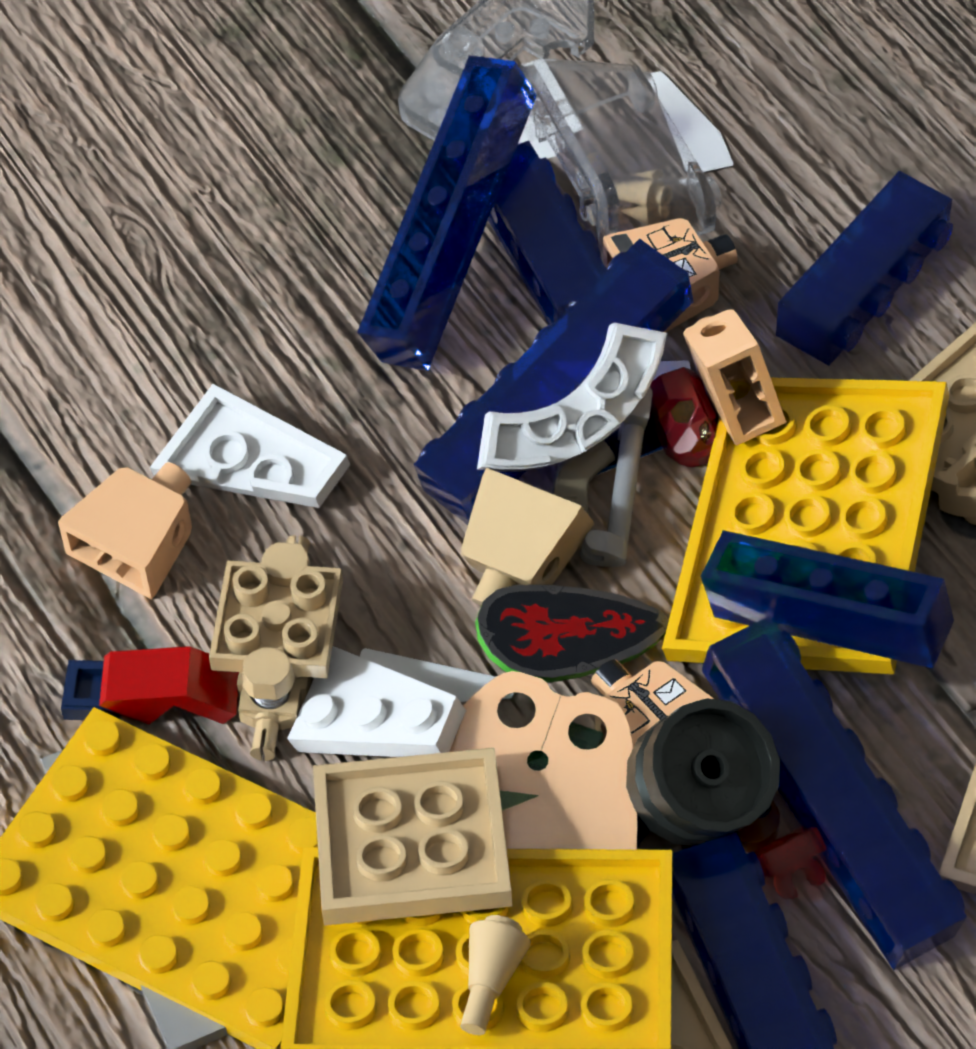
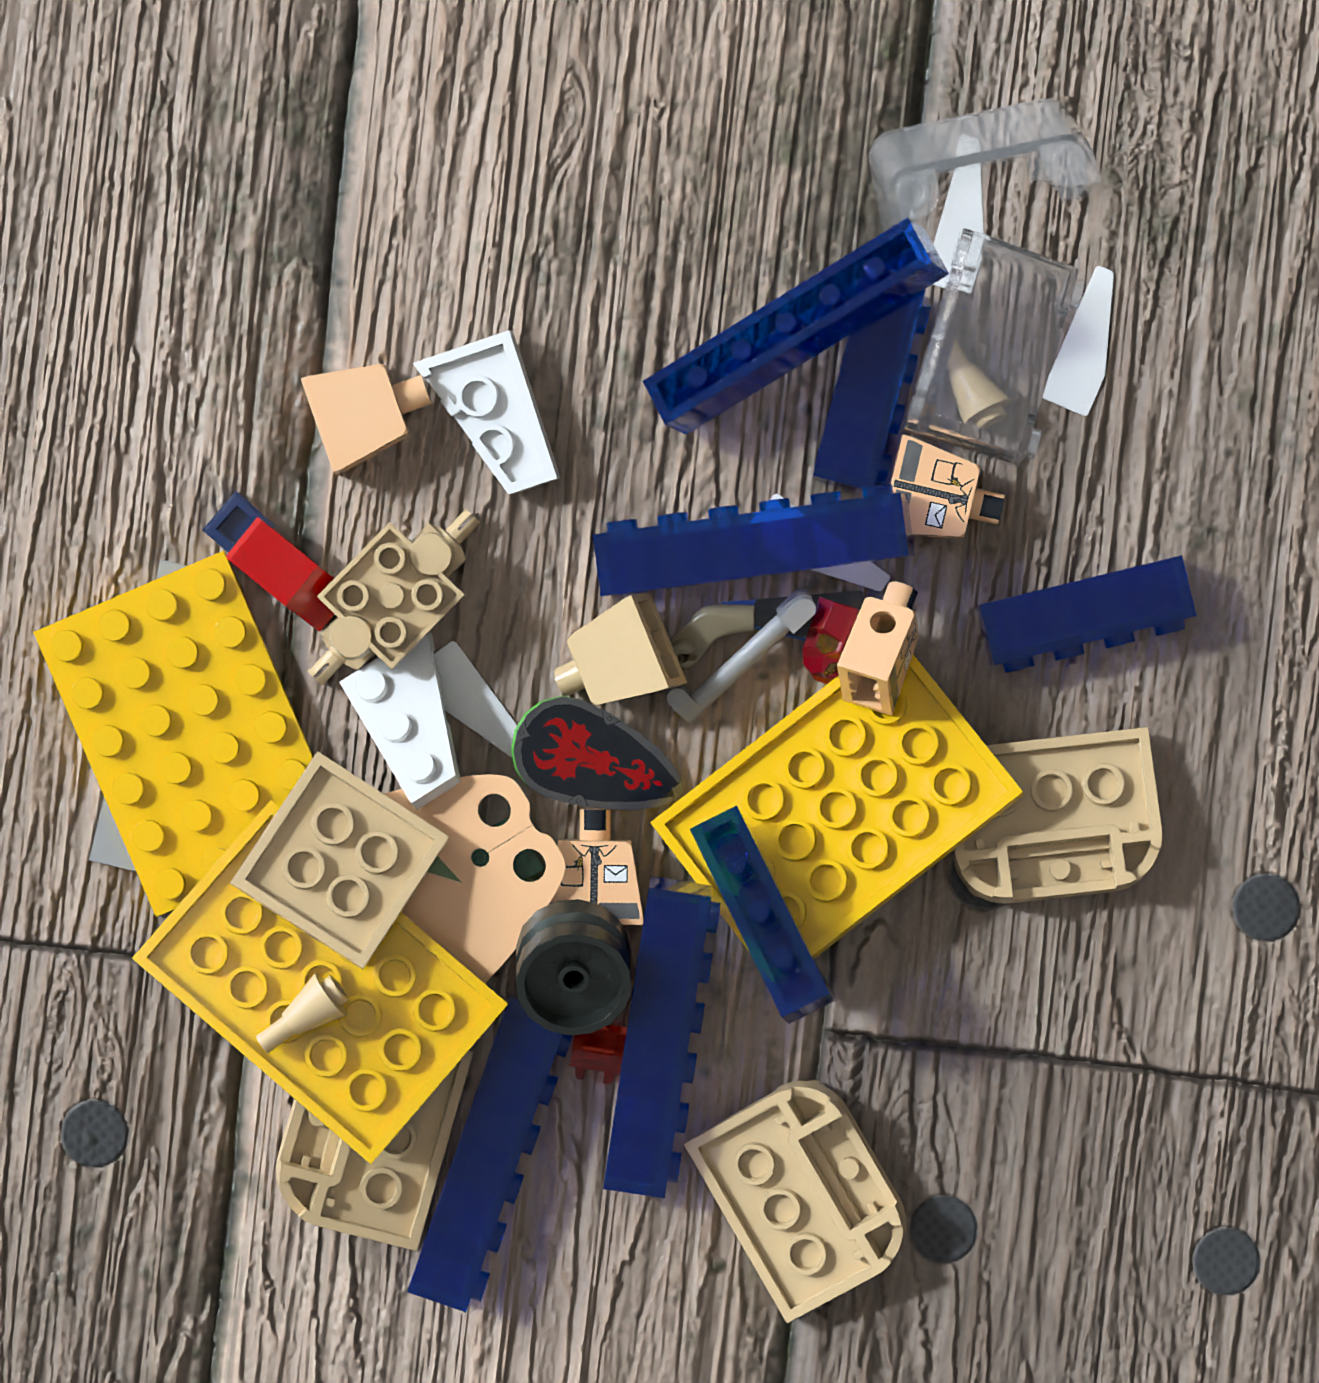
camera: 30 degrees right, 35 degrees up
(582, 418) = (739, 603): white tile -> none

